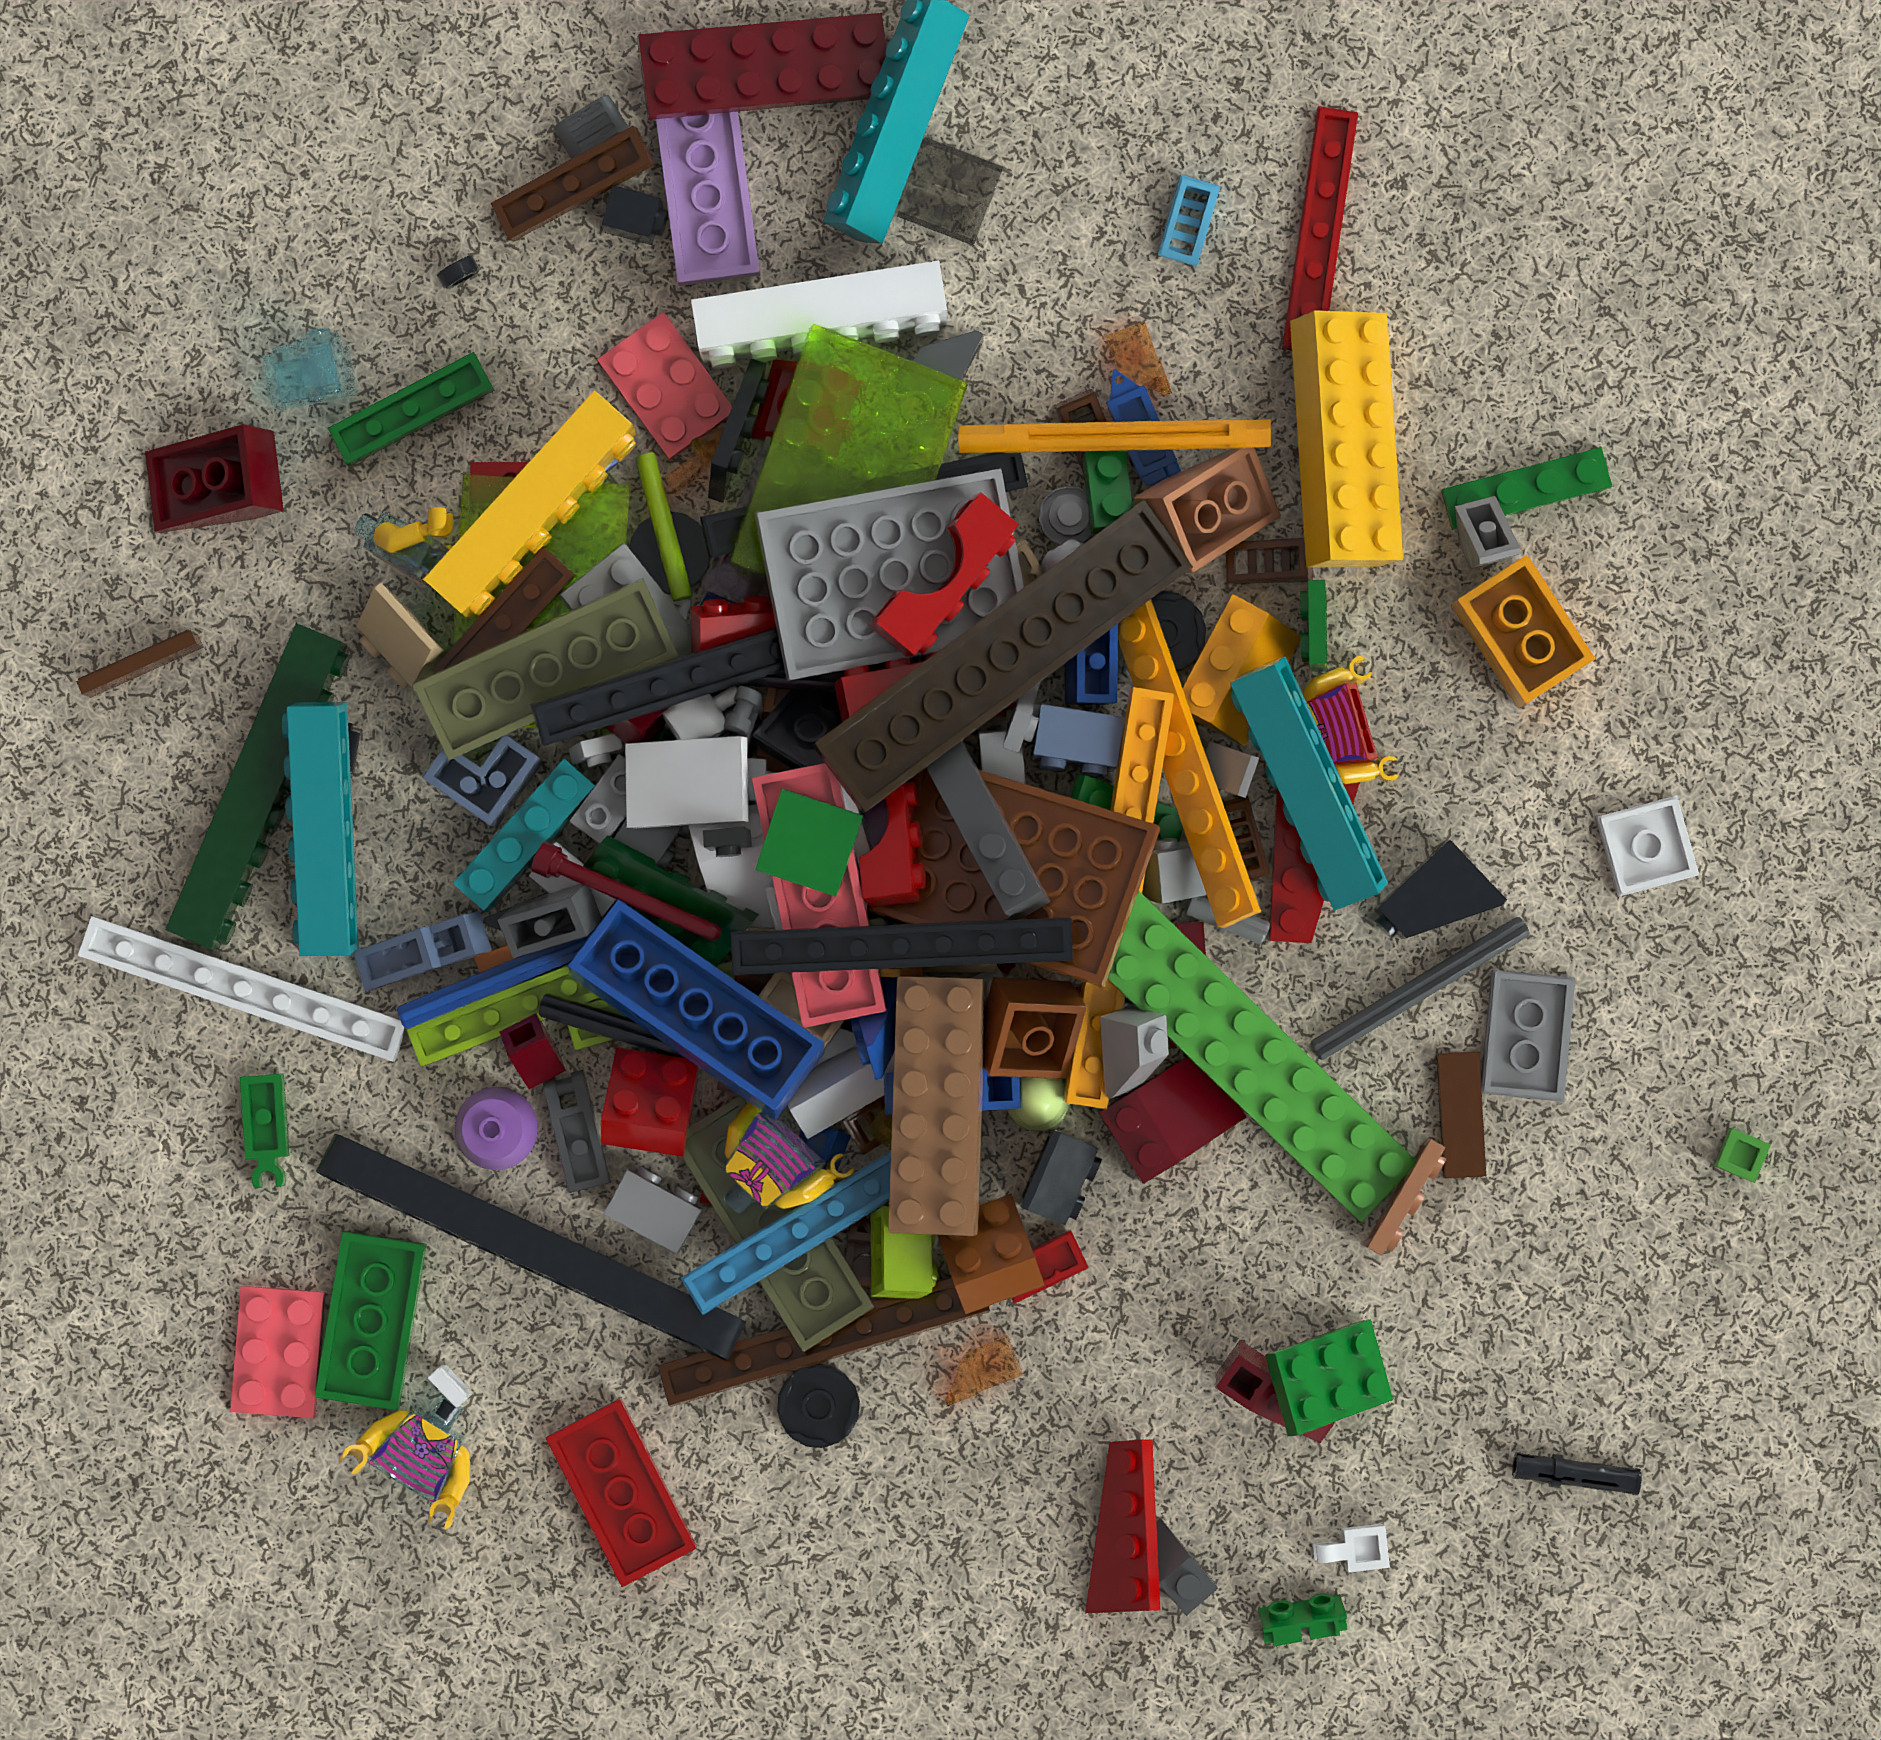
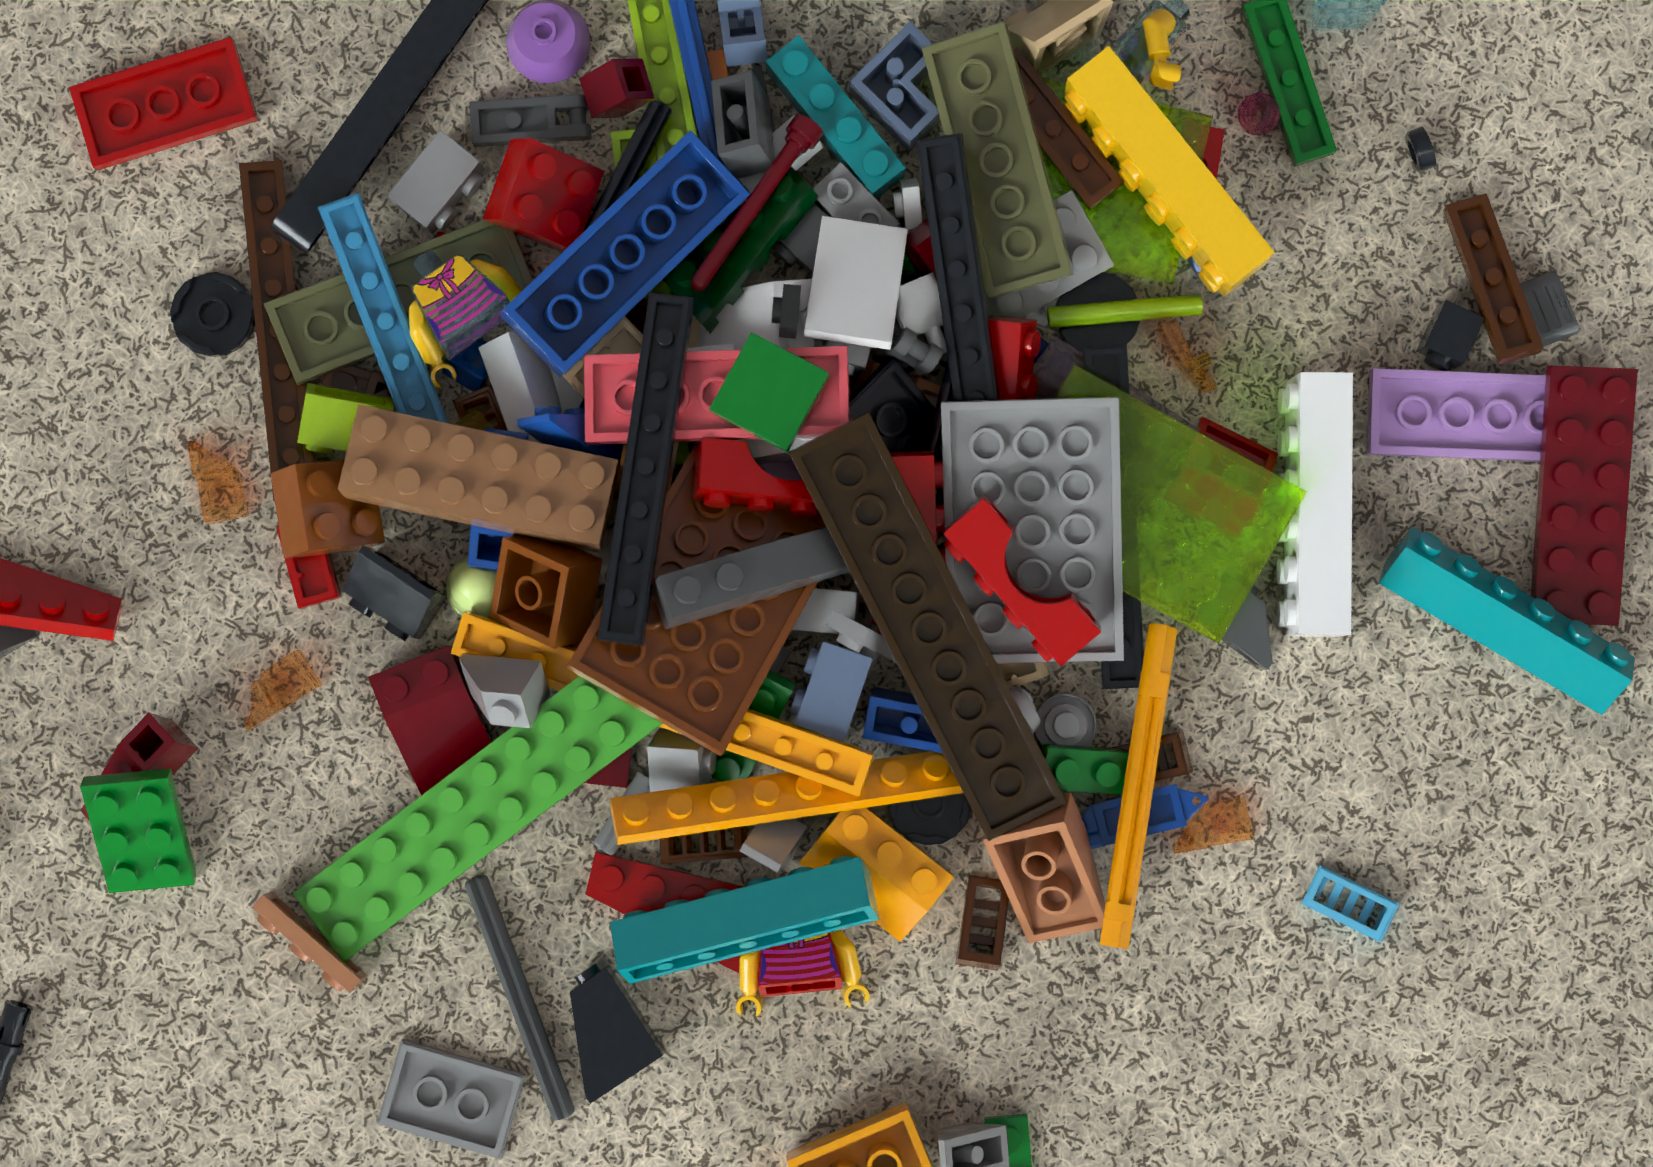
camera: 105 degrees right, 0 degrees up
(452, 442) = (1249, 108): none -> clear pink plate
(666, 385) = (1269, 340): coral plate -> none
(739, 426) = (1211, 402): black wing -> none
(943, 208) = (1404, 654): clear smoke slope -> none
(1167, 1271) = (281, 687): none -> clear orange slope
(1314, 609) = (924, 959): green plate -> none
(1321, 215) = (1317, 1038): red tile -> none
(1346, 439) = (1095, 1025): yellow brick -> none
(1461, 1114) = (383, 1015): reddish brown tile -> none

